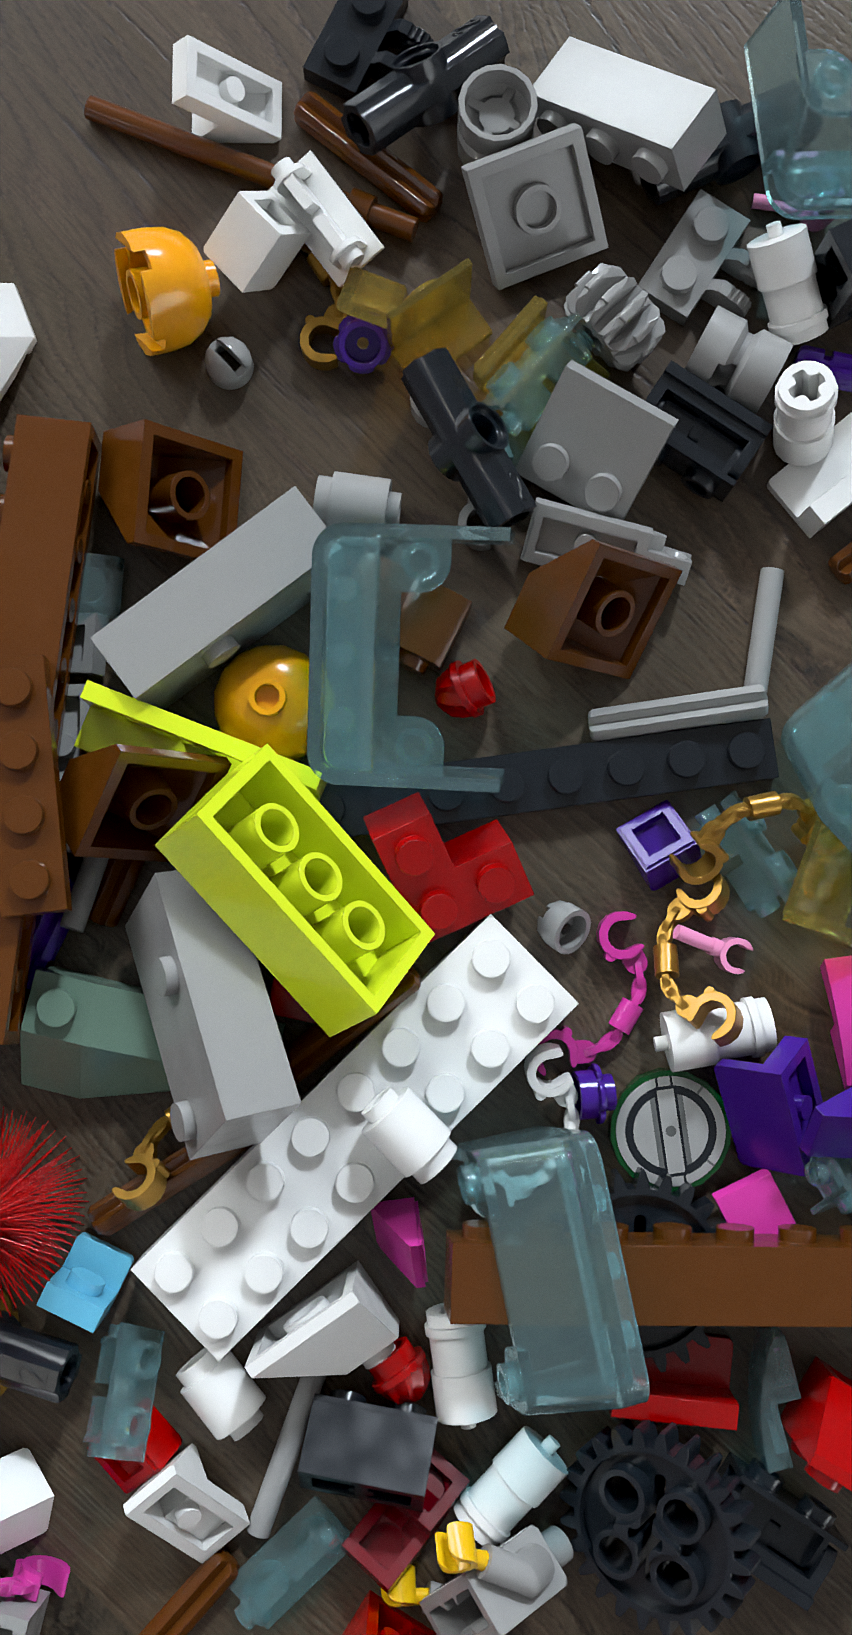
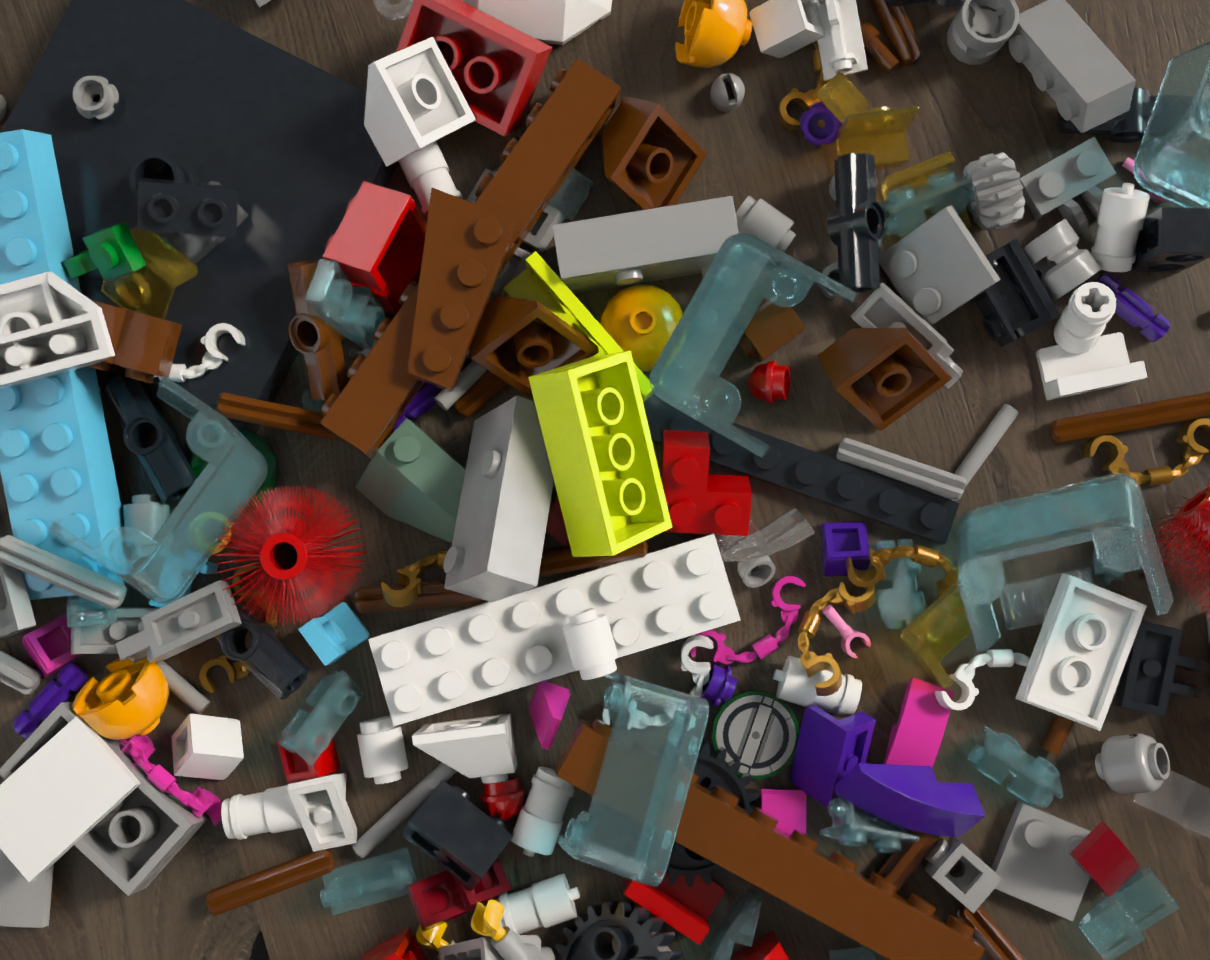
camera: 30 degrees right, 0 degrees up
(106, 1556) = (259, 813): none -> white piece
(535, 206) = (980, 93): light grey plate -> none
(567, 879) = (775, 537): none -> clear slope

